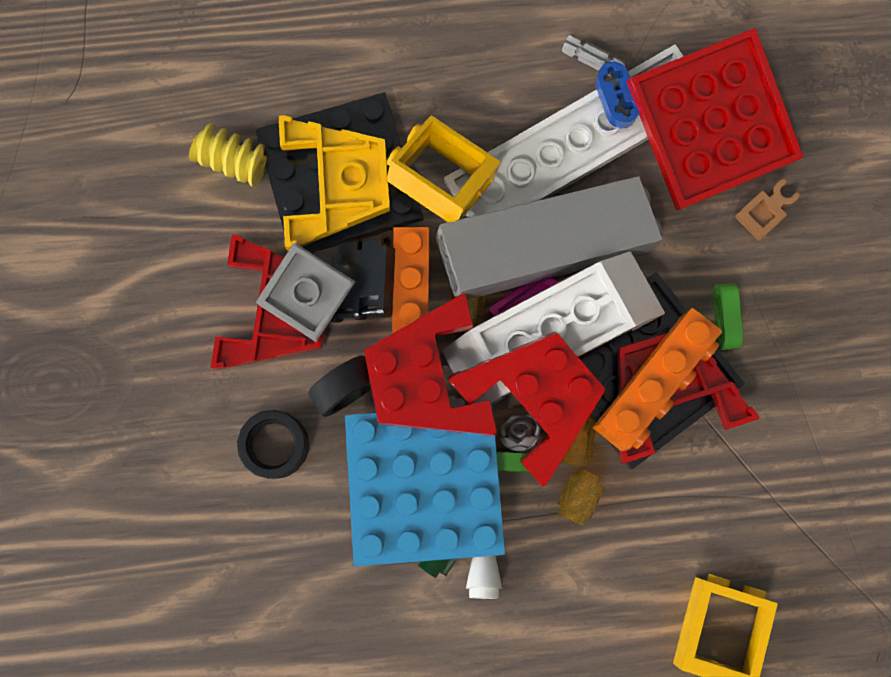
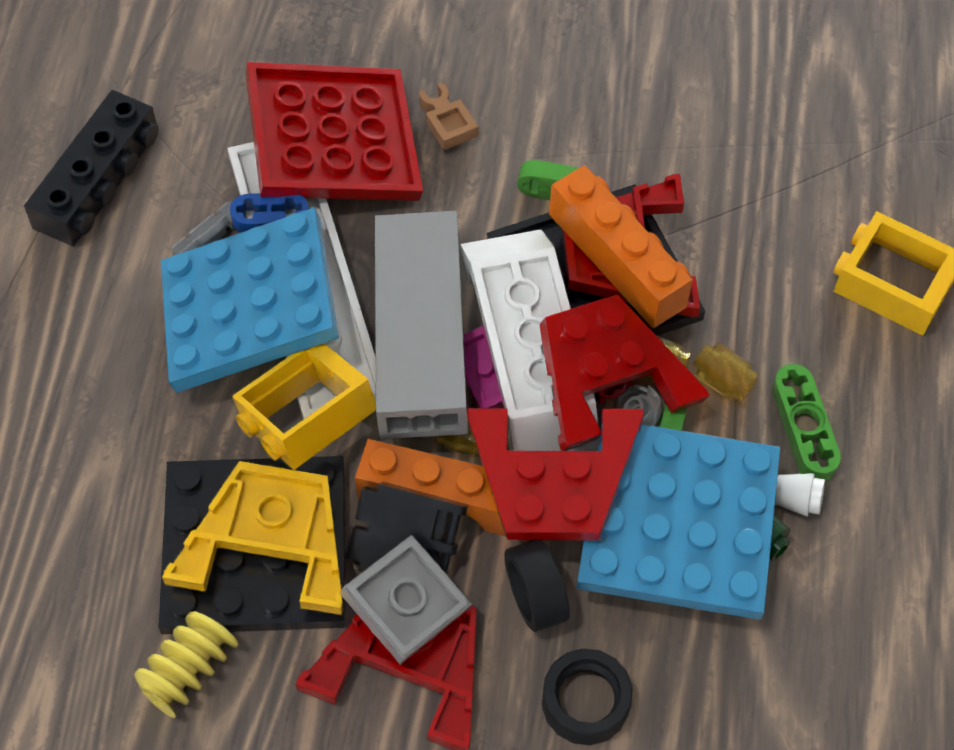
camera: 80 degrees left, 20 degrees down
(529, 102) = (247, 300): none -> dark azure plate
(568, 580) = (809, 404): none -> bright green beam

